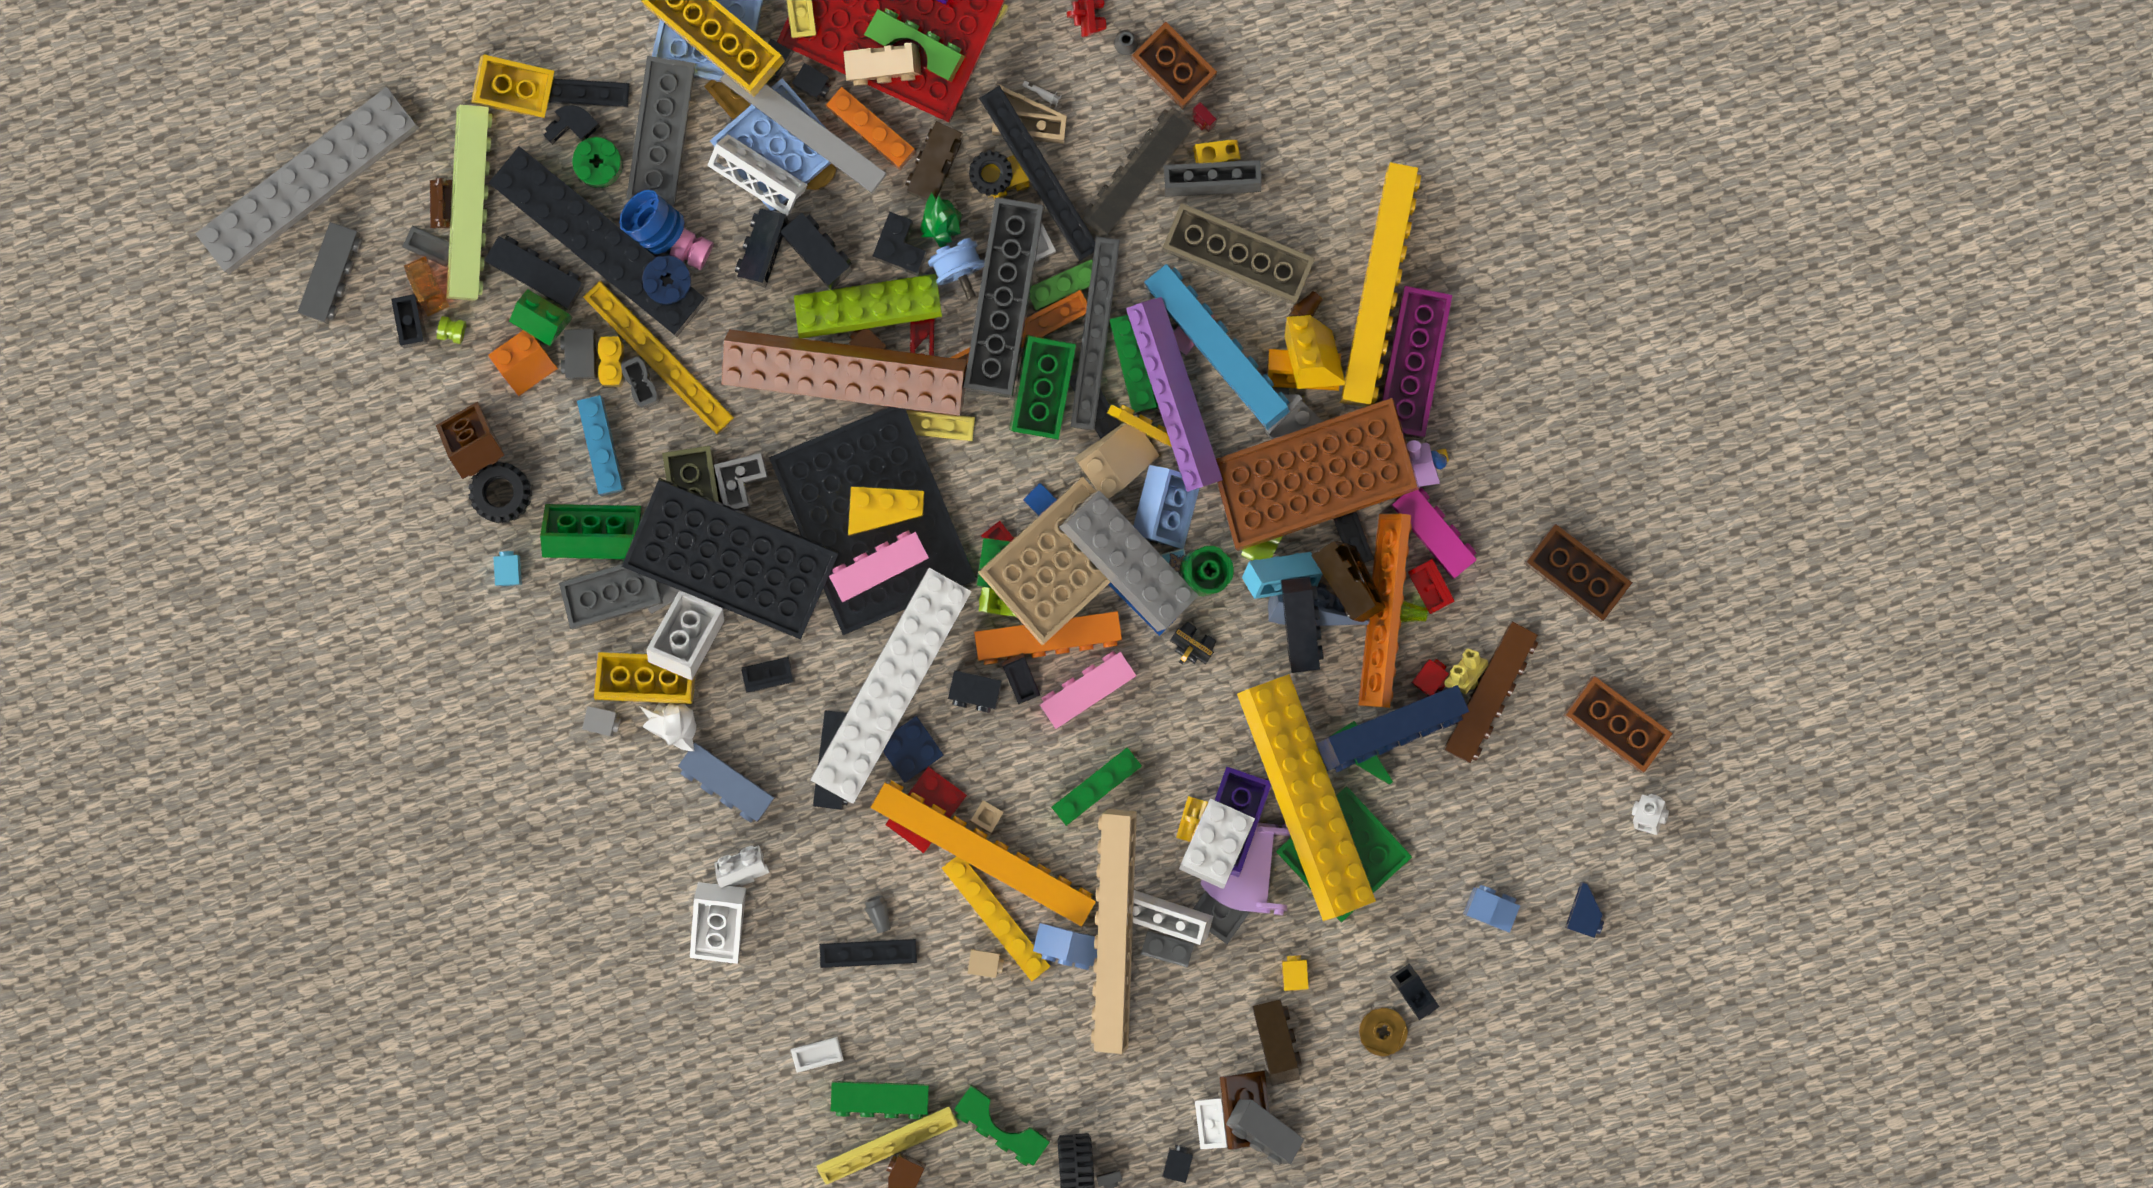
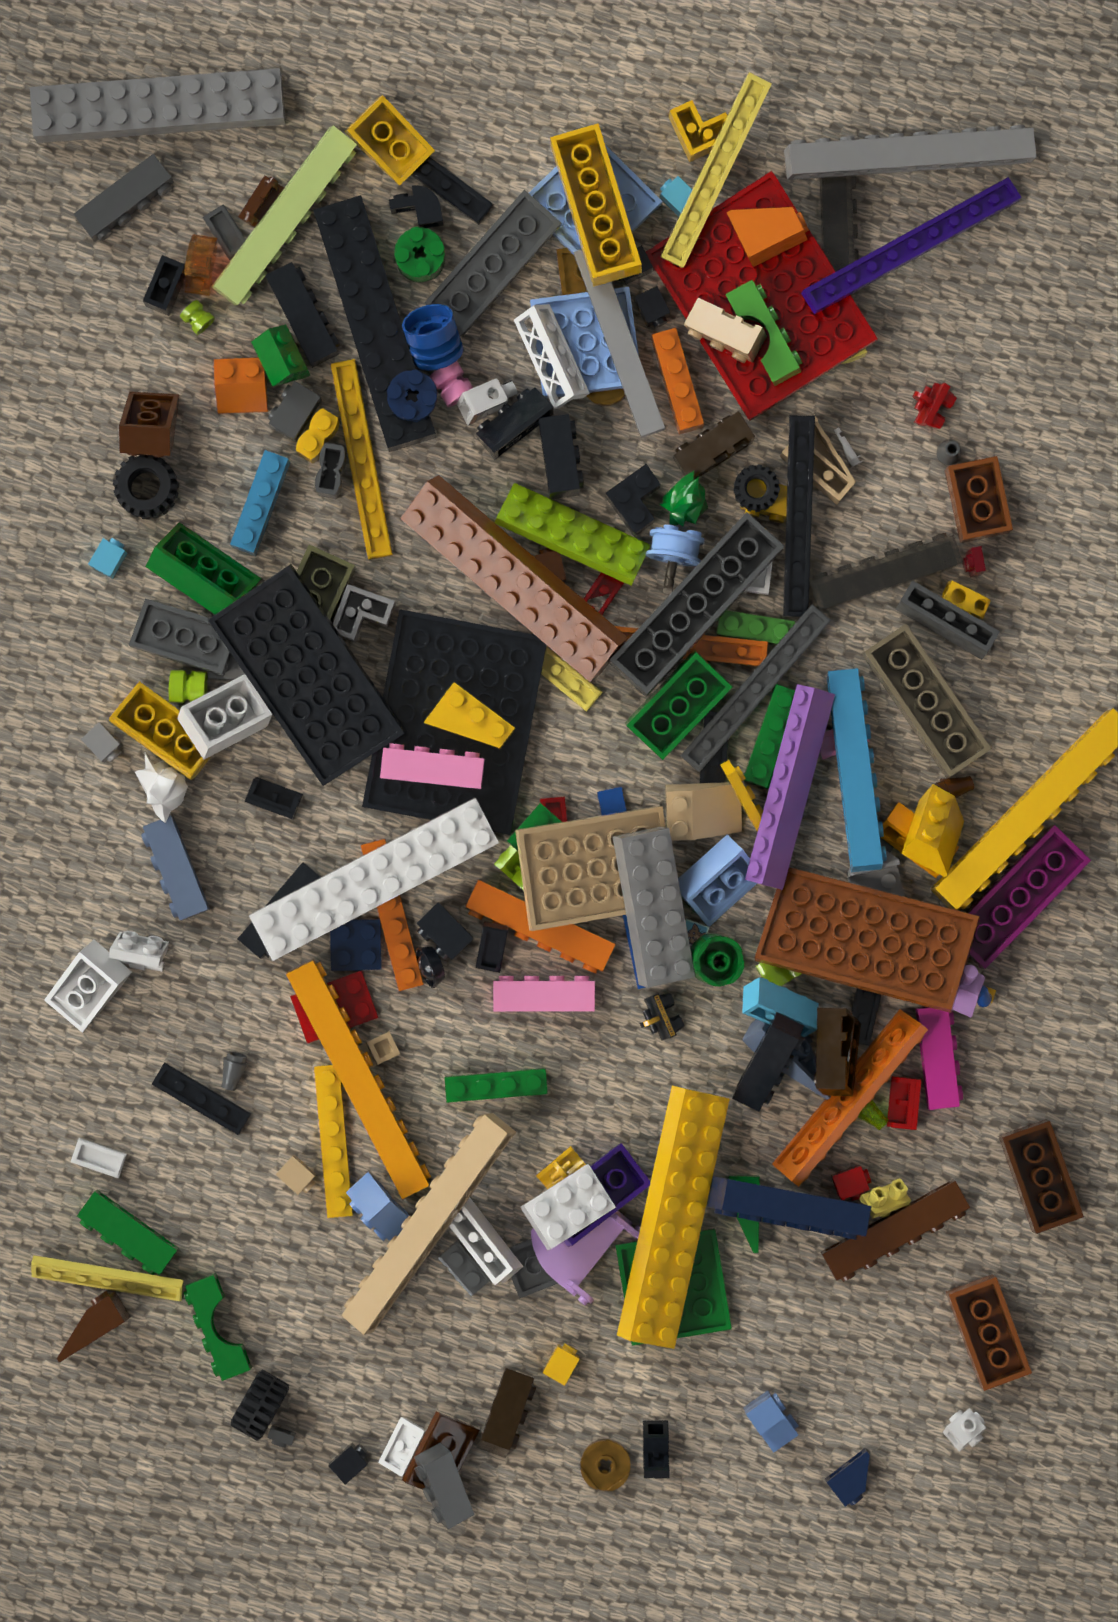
camera: 25 degrees right, 0 degrees up
(638, 631) = (186, 686): none -> lime wheel
(722, 252) = (476, 402): none -> white torso
(939, 720) = (397, 936): none -> orange plate
(981, 726) = (430, 966): none -> black hat

